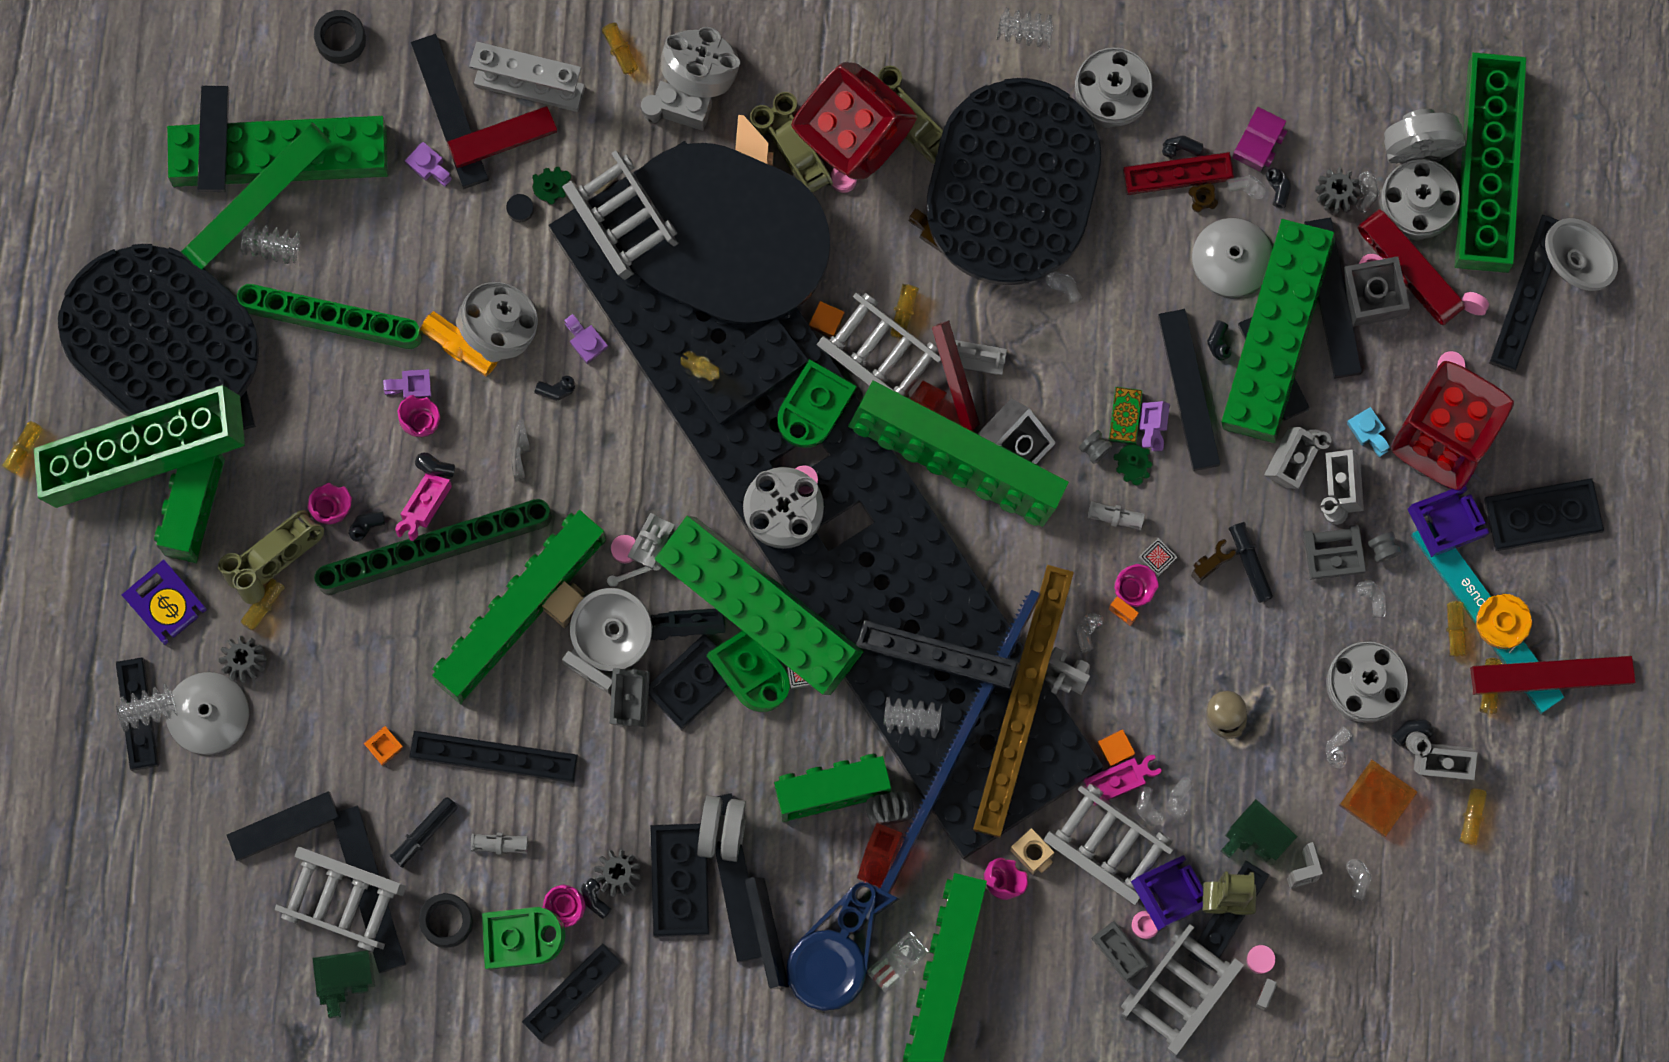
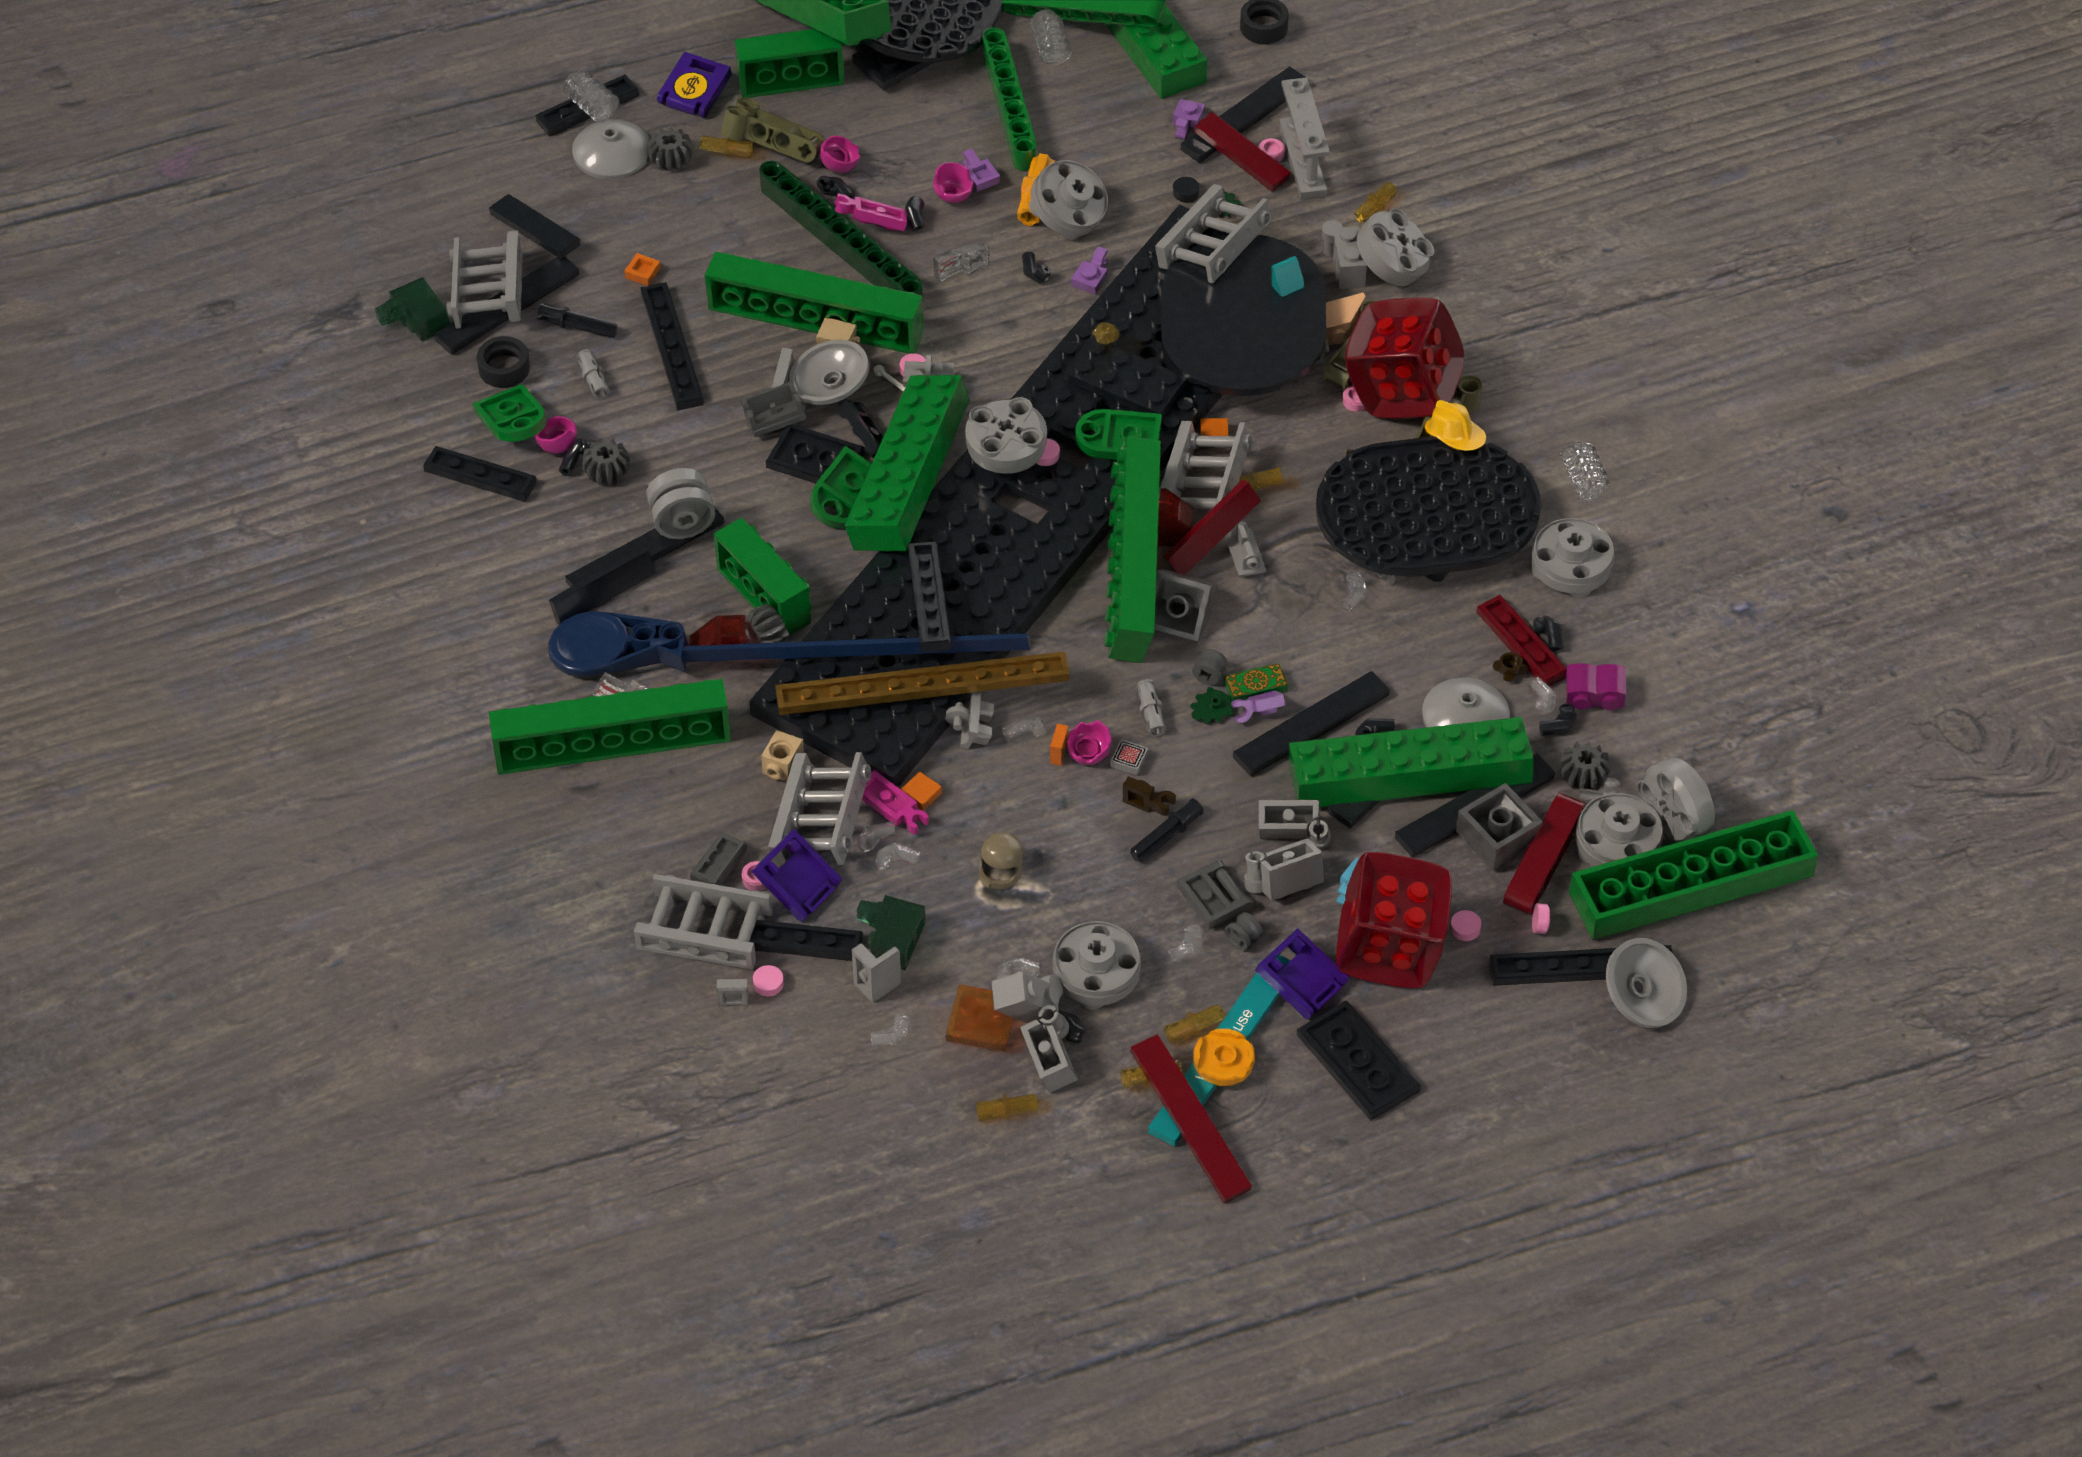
camera: 65 degrees right, 25 degrees down
(506, 108) = (1273, 148): none -> bright pink tile
(678, 881) = (610, 516): black tile -> none
(712, 176) = (1287, 276): none -> teal slope
(912, 717) = (859, 602): clear piece -> none
(943, 116) = (1454, 427): none -> yellow piece
(1005, 879) = (744, 741): dark pink hair -> none
(1230, 895) = (813, 901): olive piece -> none
(1389, 753) = (1024, 995): none -> light grey hinge

